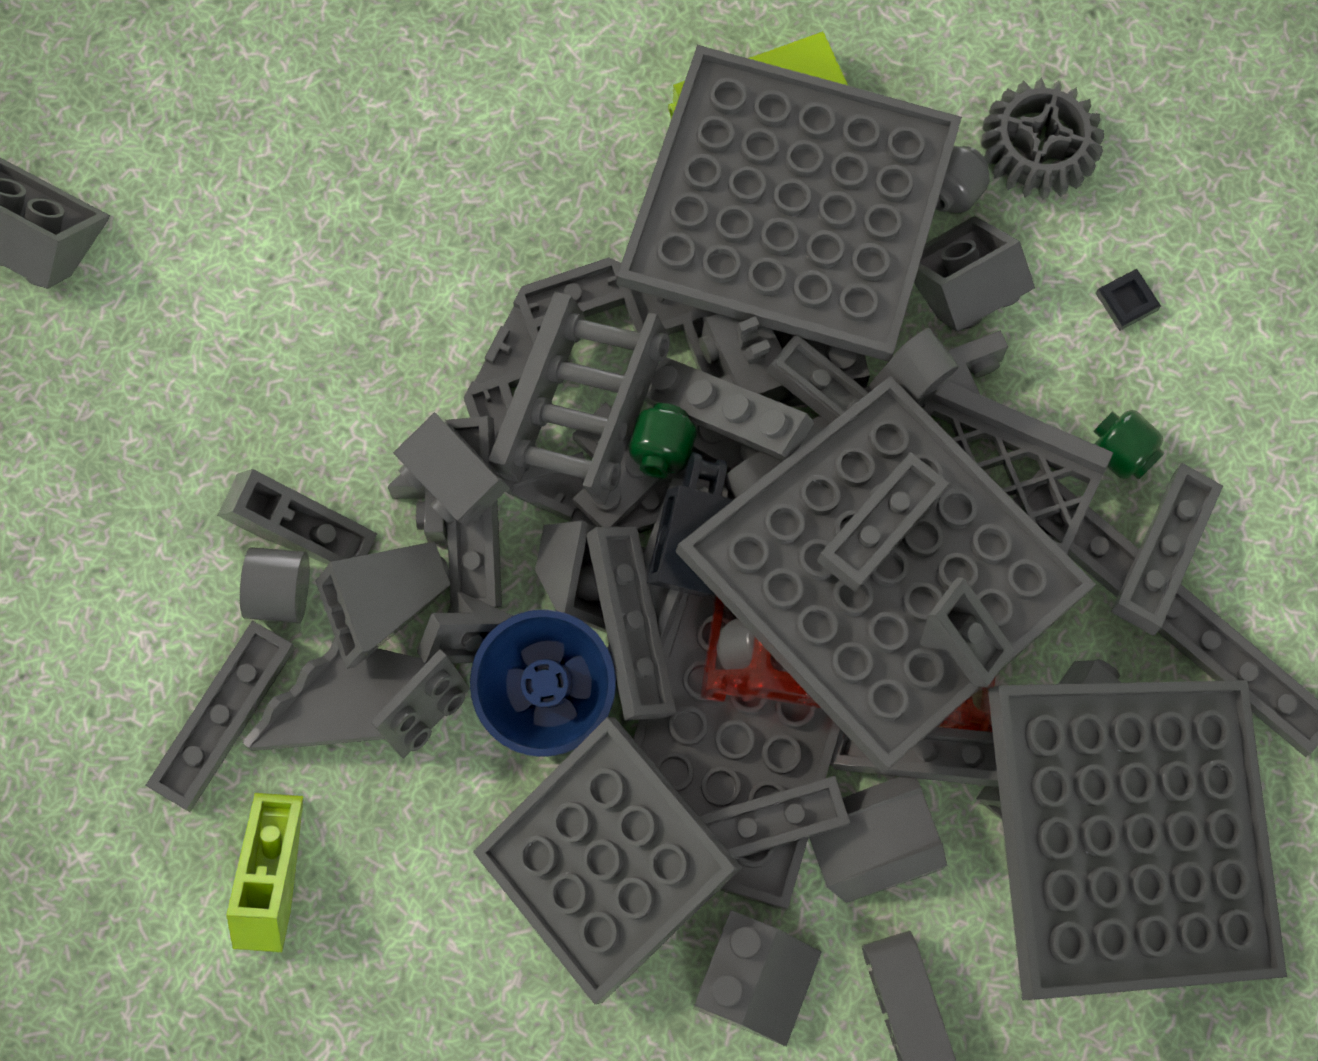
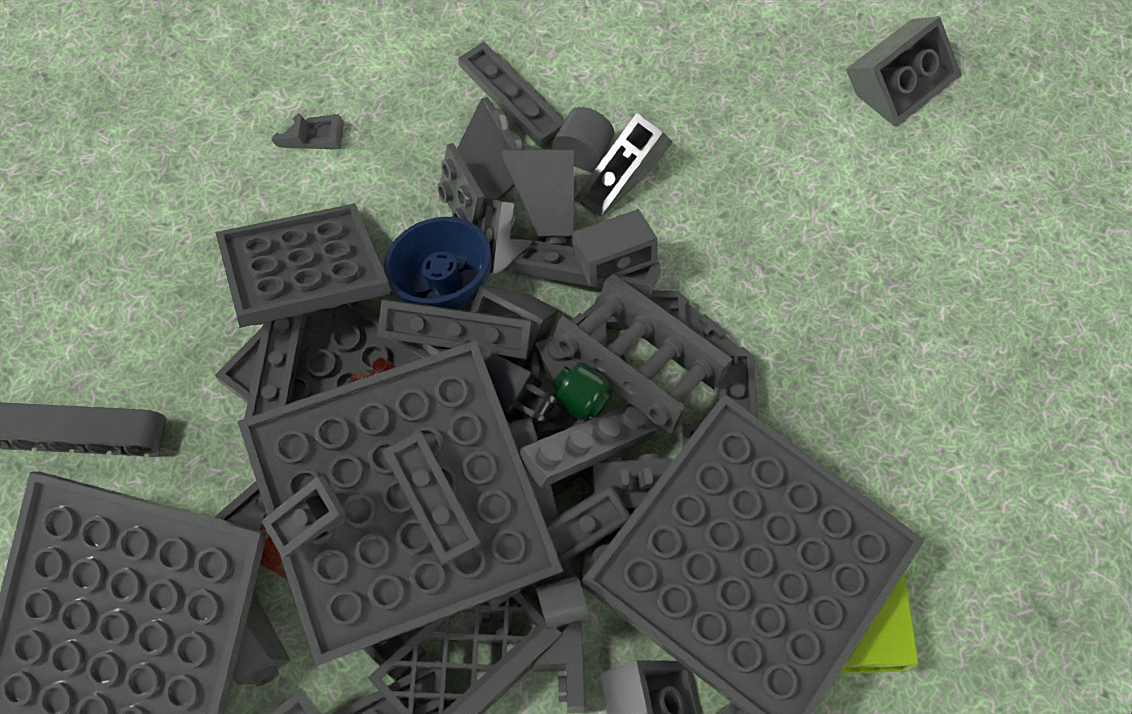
camera: 110 degrees right, 10 degrees down
(265, 874) = (398, 88): lime slope -> none
(374, 967) = (312, 133): none -> dark grey slope
(757, 978) = (182, 339): dark grey slope -> none
(885, 843) = (219, 459): dark grey slope -> none

